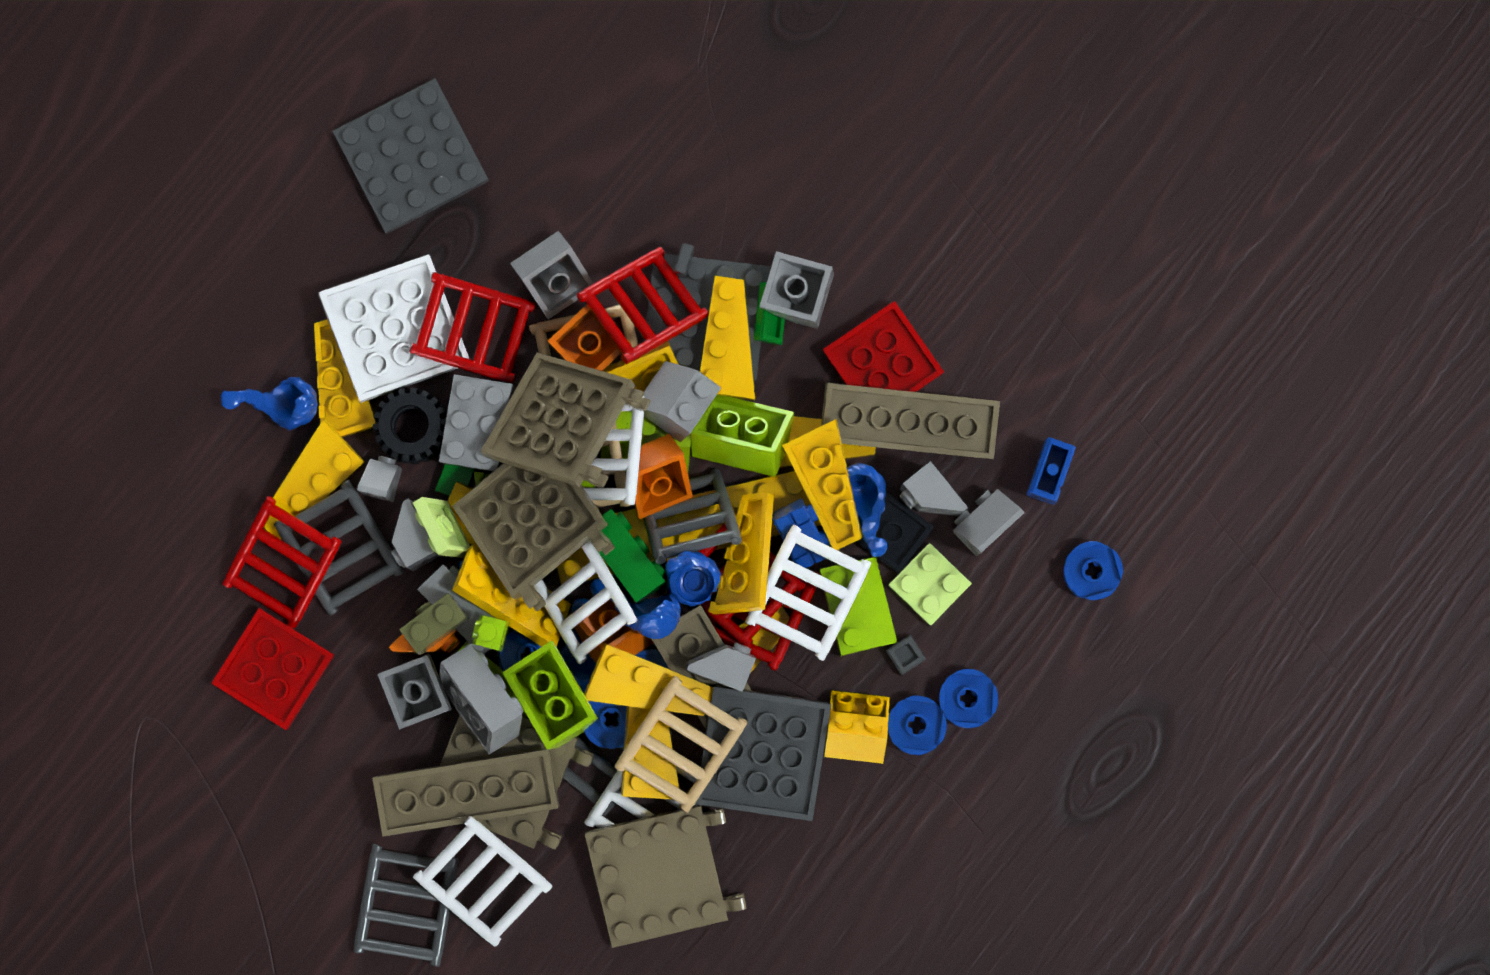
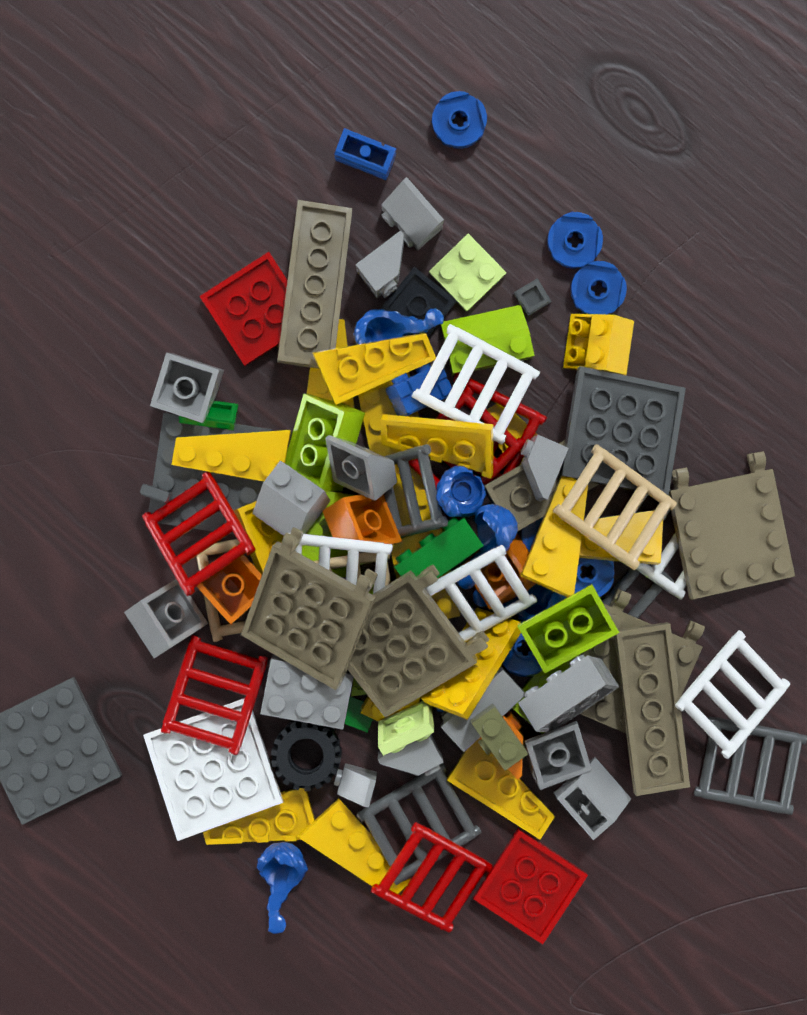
camera: 85 degrees left, 5 degrees up
(368, 733) = (593, 799): none -> light grey slope
(373, 634) = (500, 790): none -> yellow wing
(490, 633) = (508, 684): lime brick -> none
(715, 472) = (360, 468): none -> light grey slope

